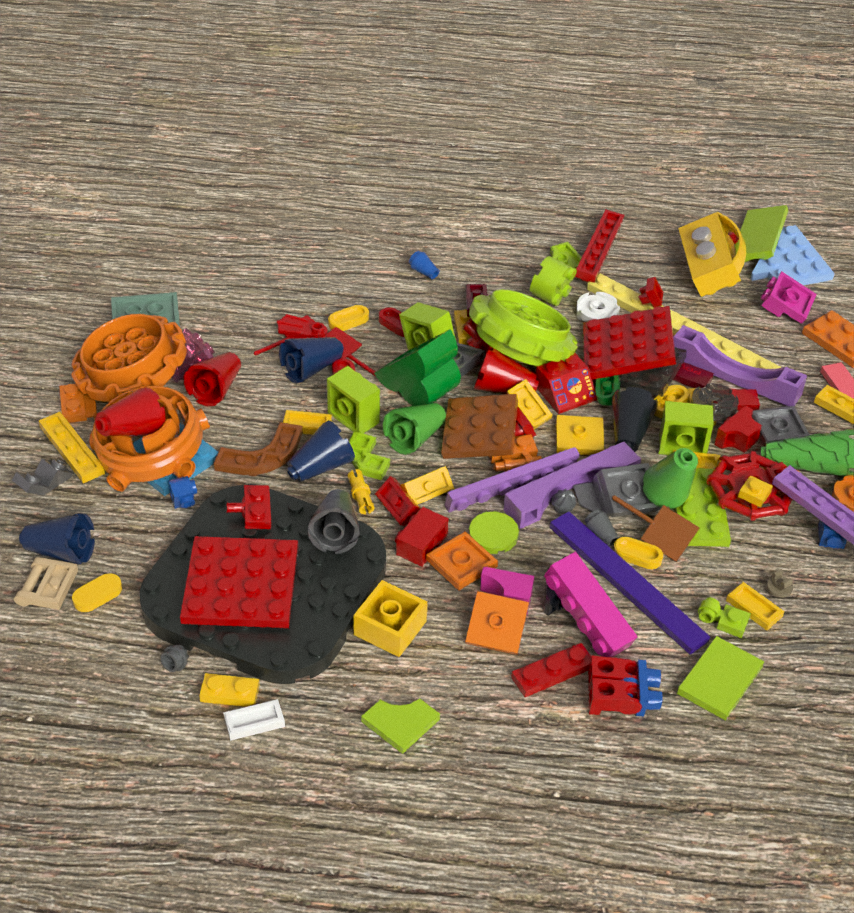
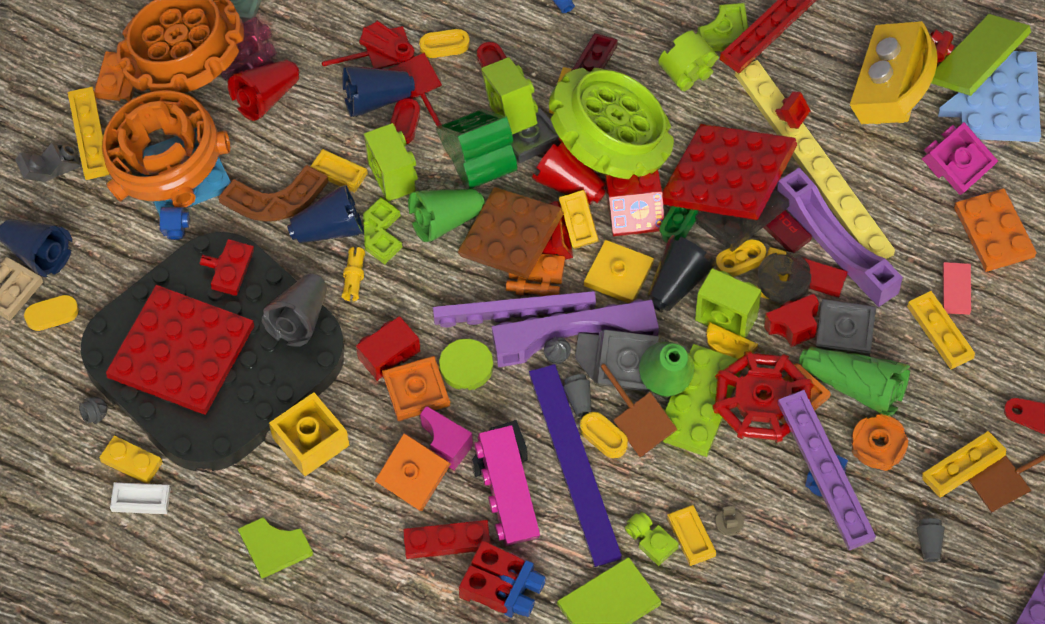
camera: 25 degrees right, 15 degrees up
(132, 415) = (139, 129): red cone -> none
(397, 501) = (383, 297): red plate -> none
(429, 485) = (422, 289): yellow plate -> none
(588, 306) = (722, 96): white plate -> none
(755, 491) = (753, 407): yellow plate -> none

